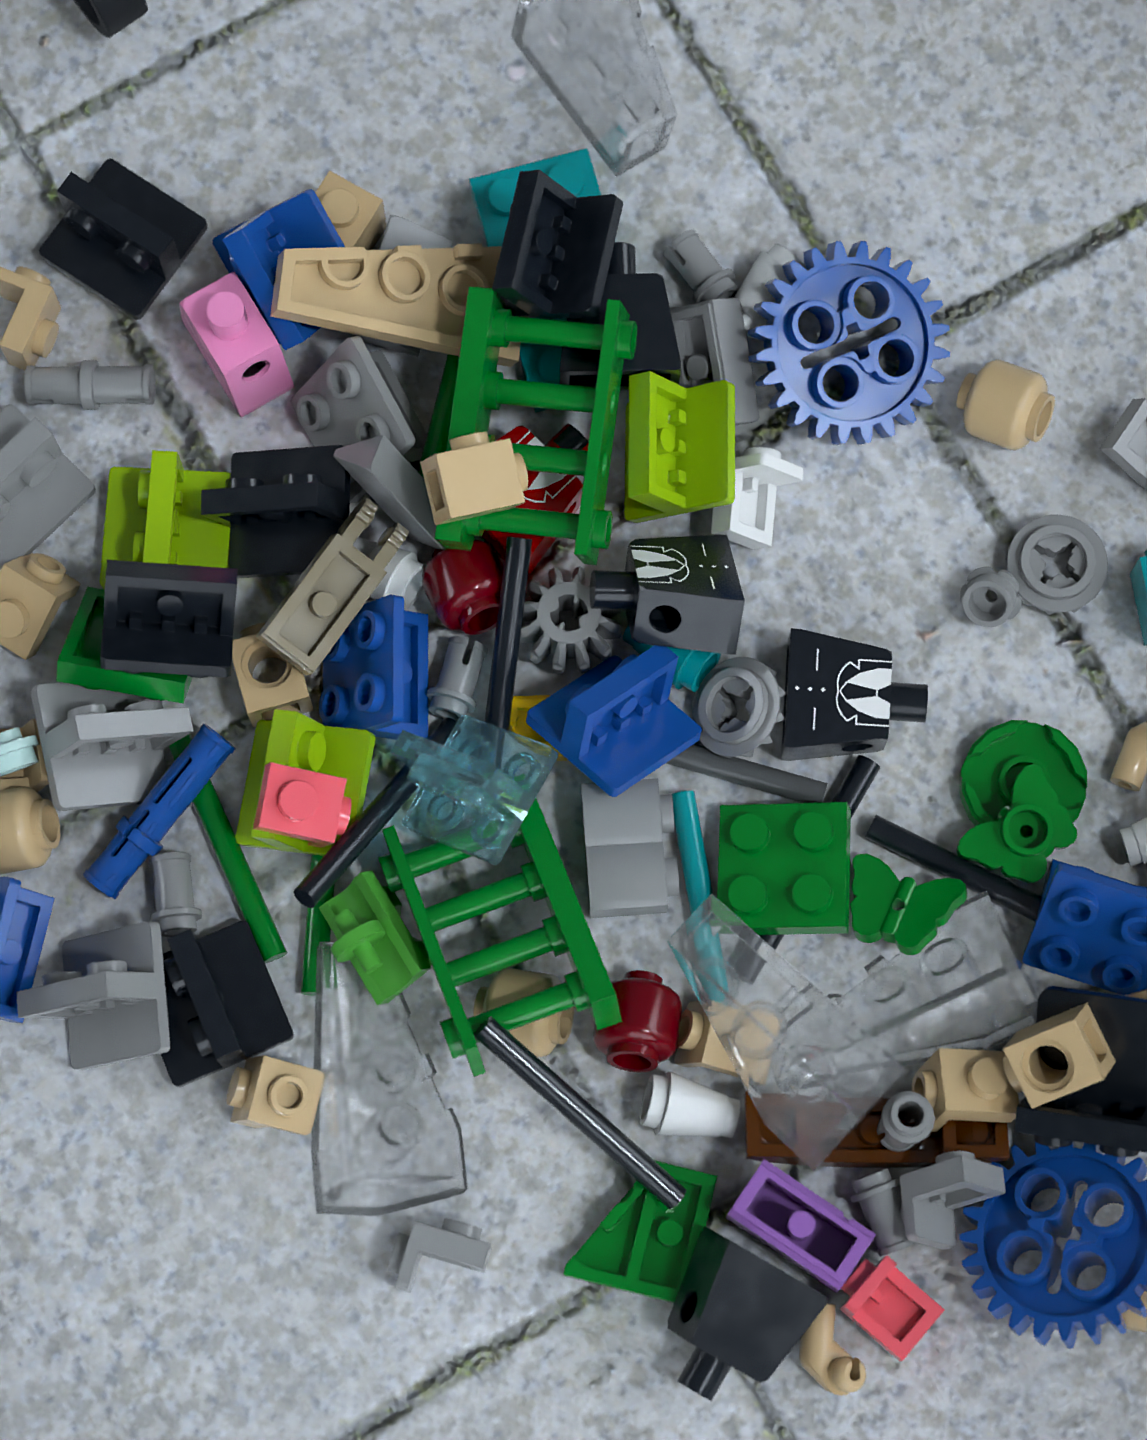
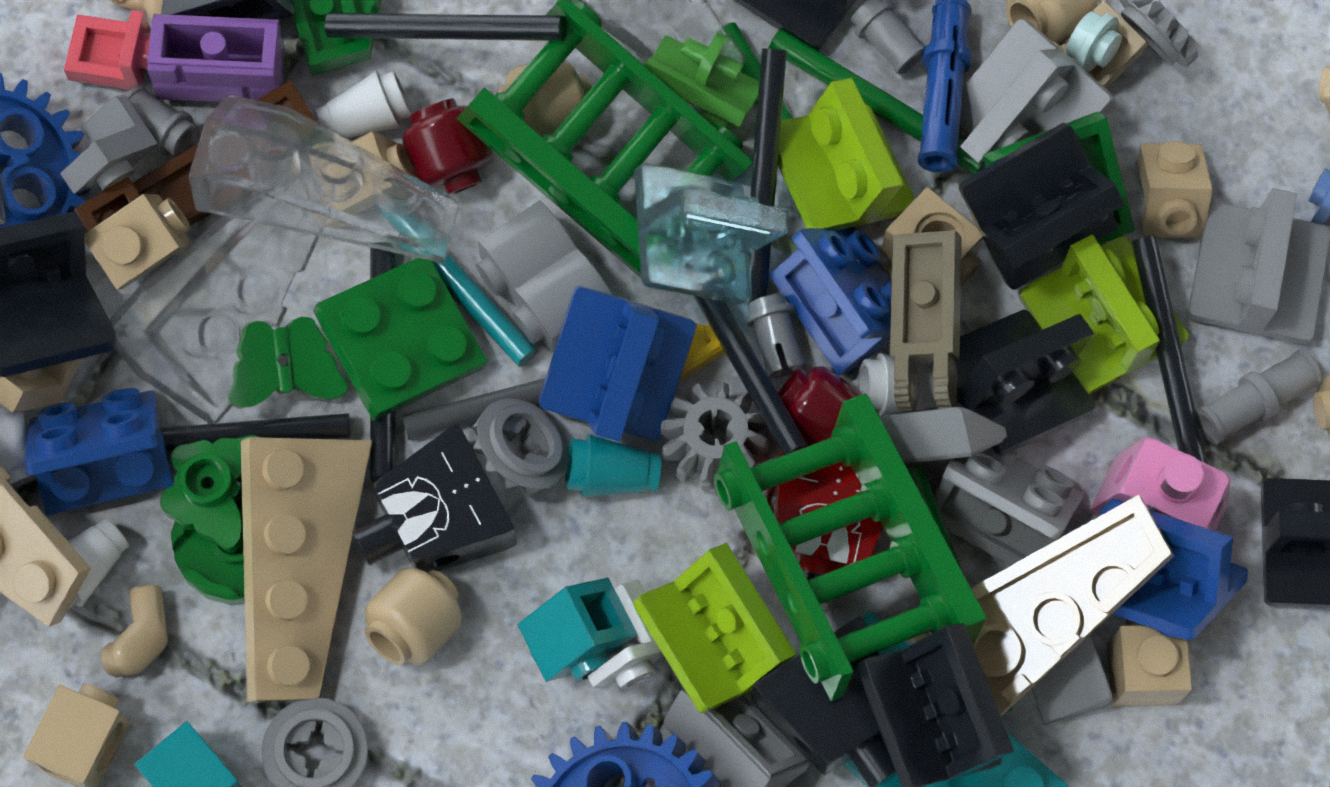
camera: 145 degrees right, 5 degrees down
(139, 457) = (1169, 348): none -> black bar
(302, 805) = (825, 119): coral bracket -> none
(474, 478) = (862, 442): tan brick -> none
(676, 593) = (633, 495): black torso -> none
(788, 519) = (577, 630): none -> teal brick
(910, 1108) = (164, 168): light grey pin -> none
(914, 619) = (413, 616): none -> tan head
(979, 736) = (296, 549): none -> tan wing
(985, 610) = (357, 679): light grey plate -> none
(1079, 1039) = (69, 287): tan brick -> none

